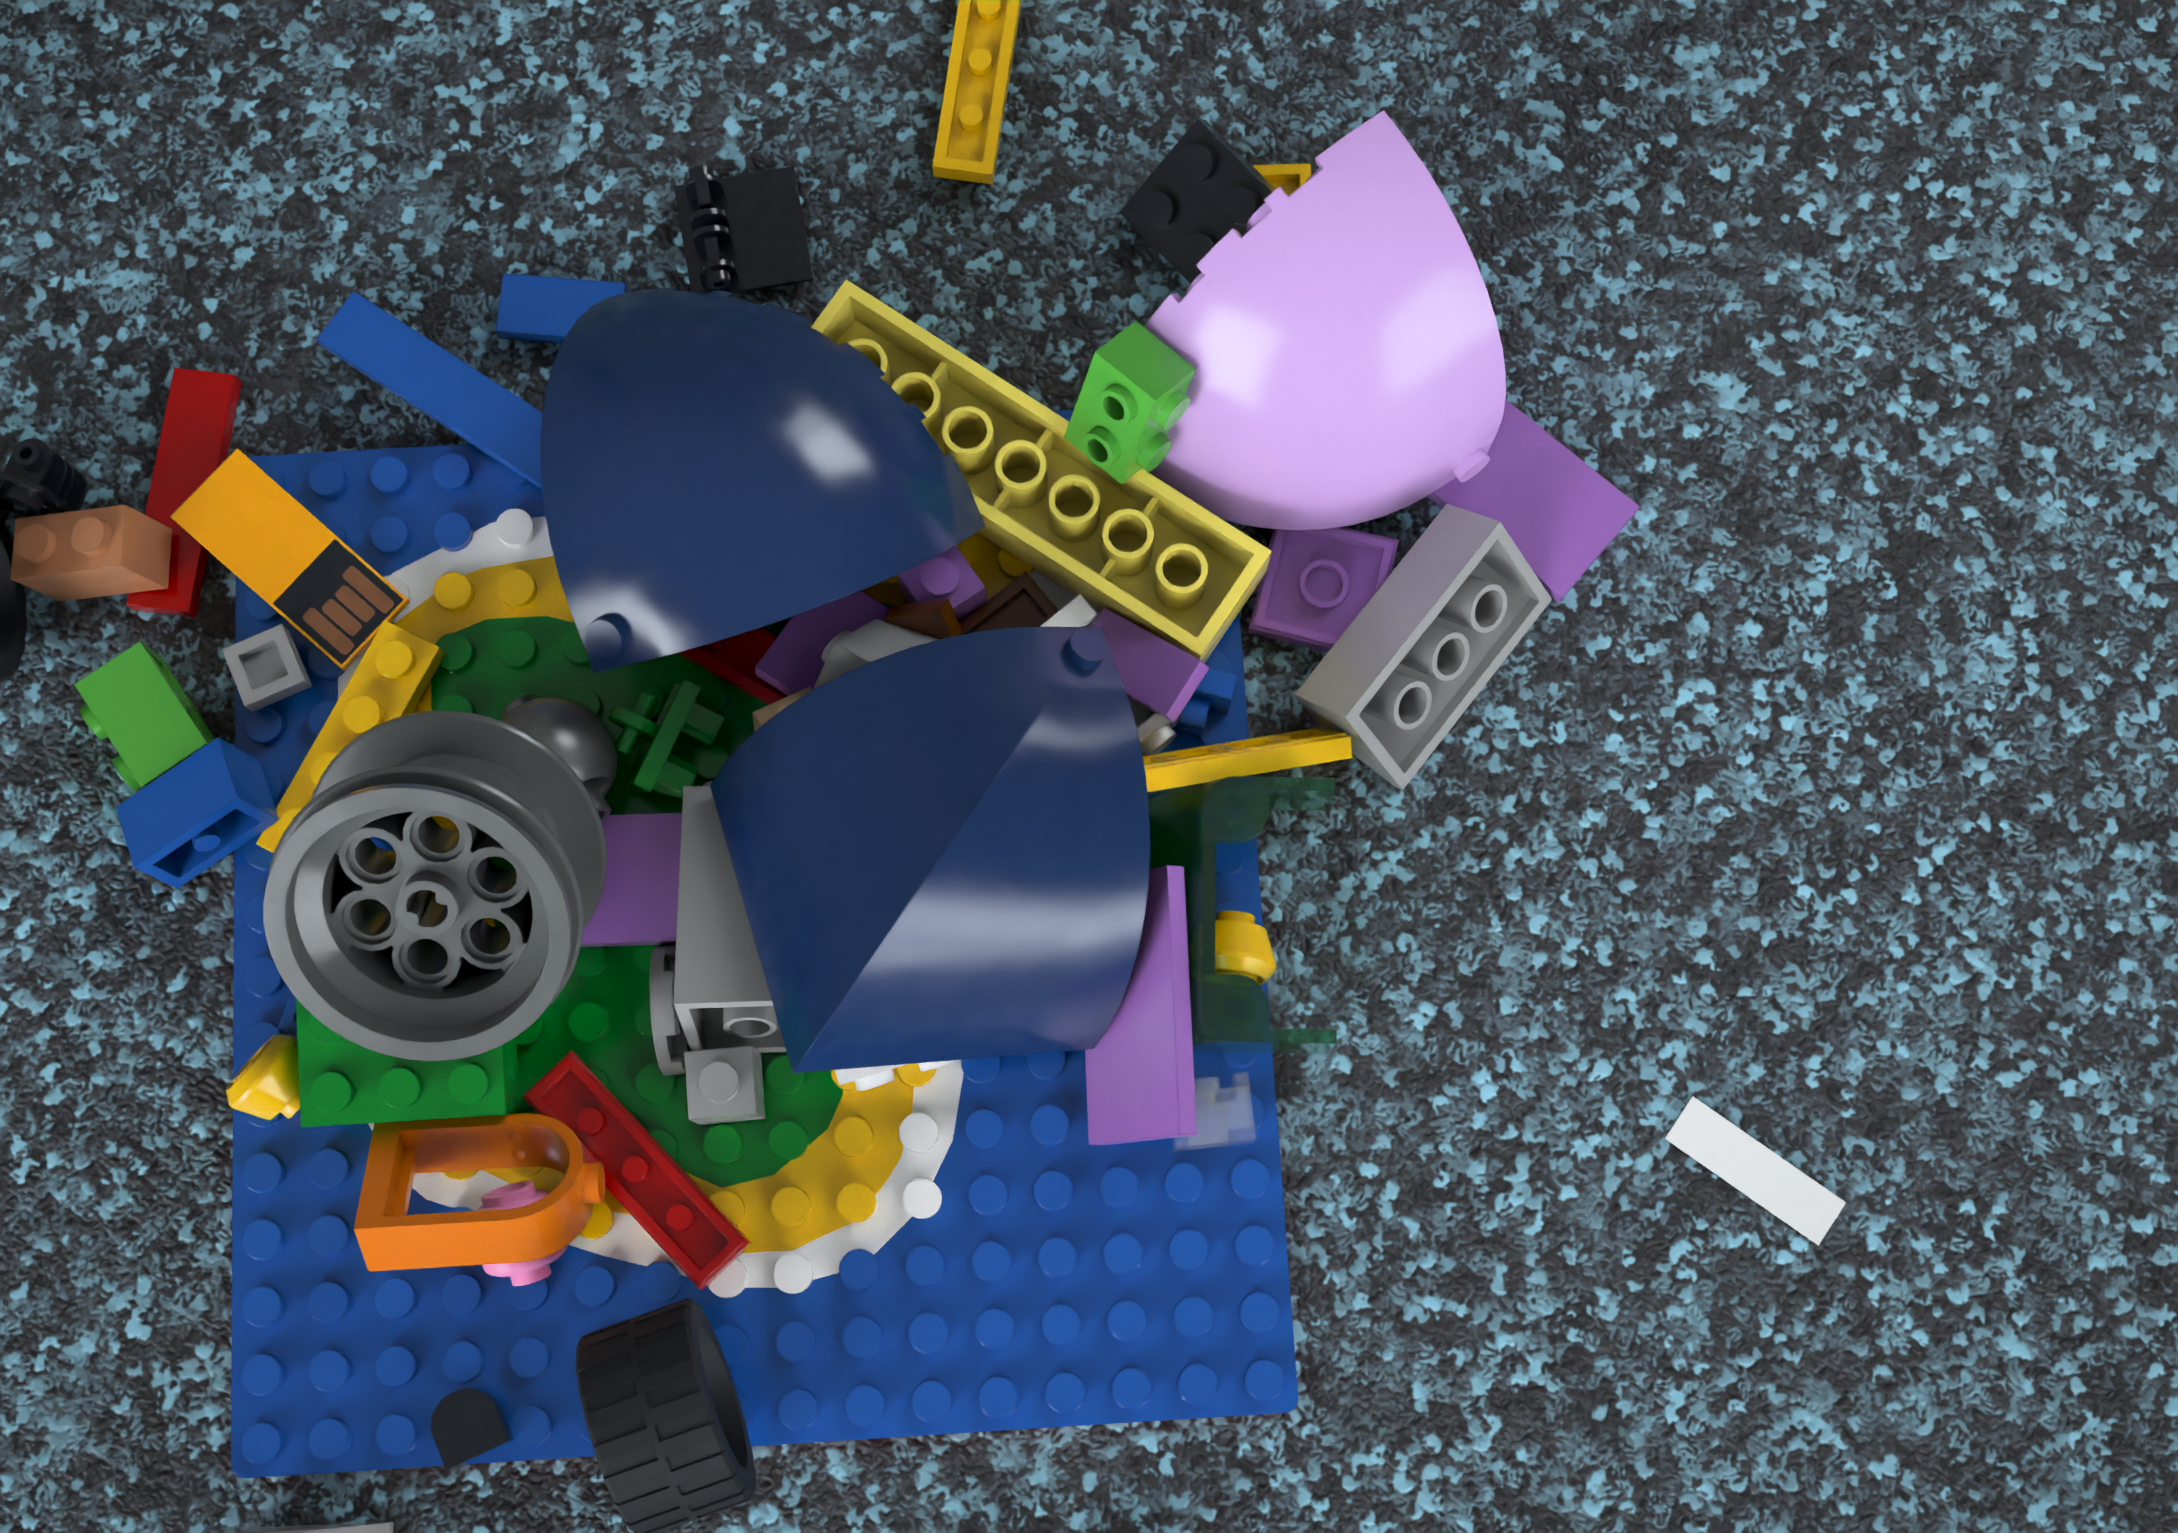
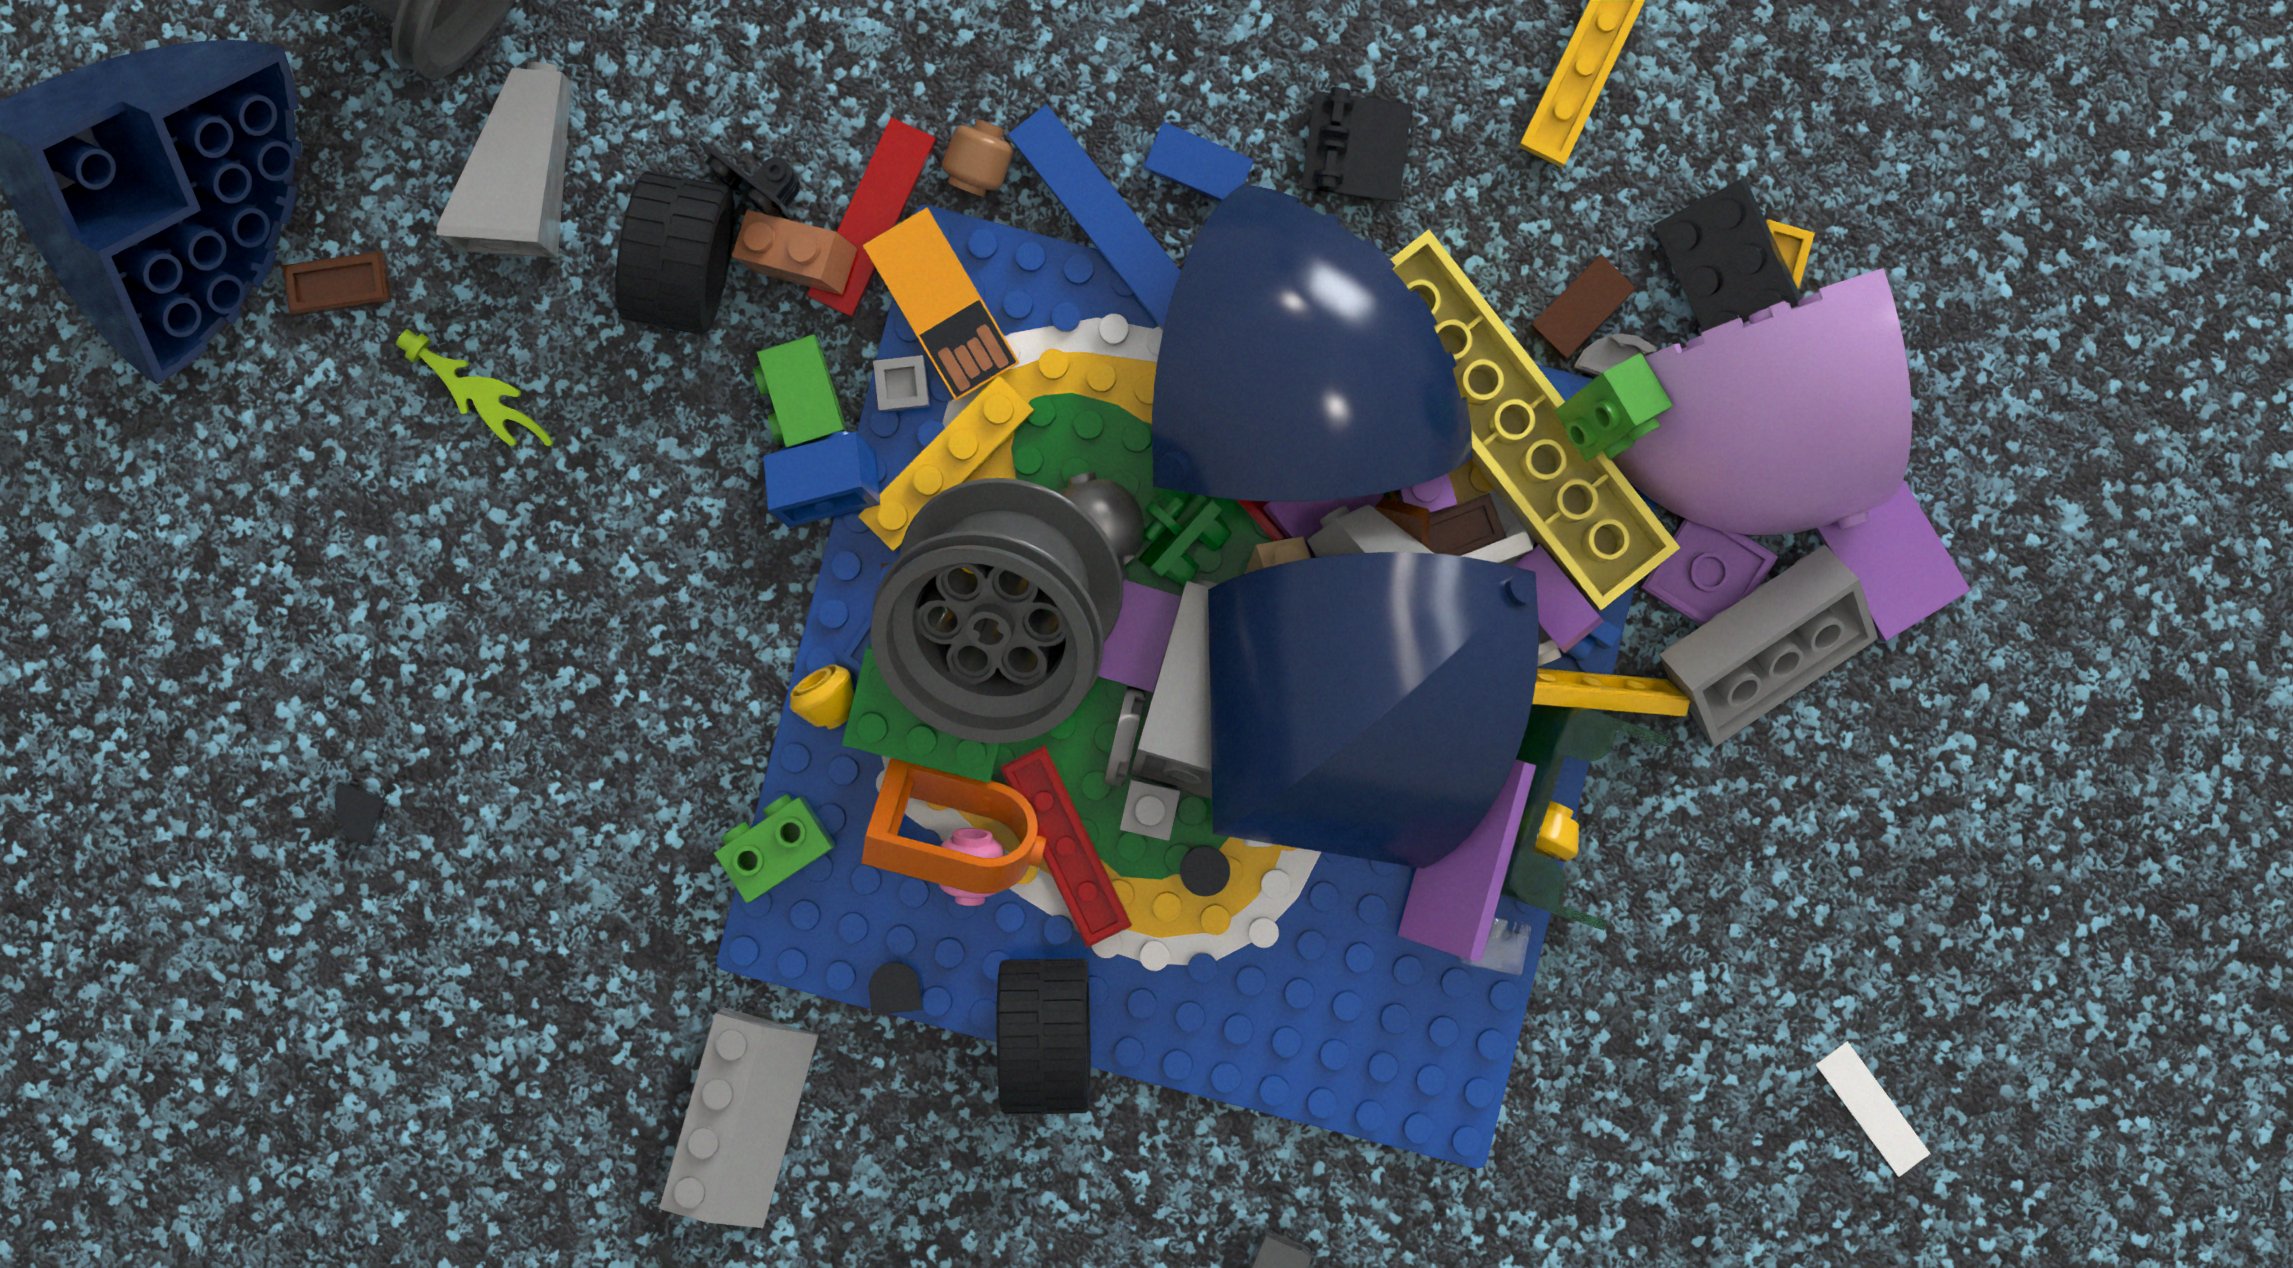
camera: 15 degrees right, 10 degrees up
(258, 1292) = (773, 848): none -> bright green brick
(290, 380) = (977, 157): none -> medium nougat head
(821, 1143) = (1204, 871): none -> black tile
(1069, 330) = (1582, 307): none -> reddish brown tile

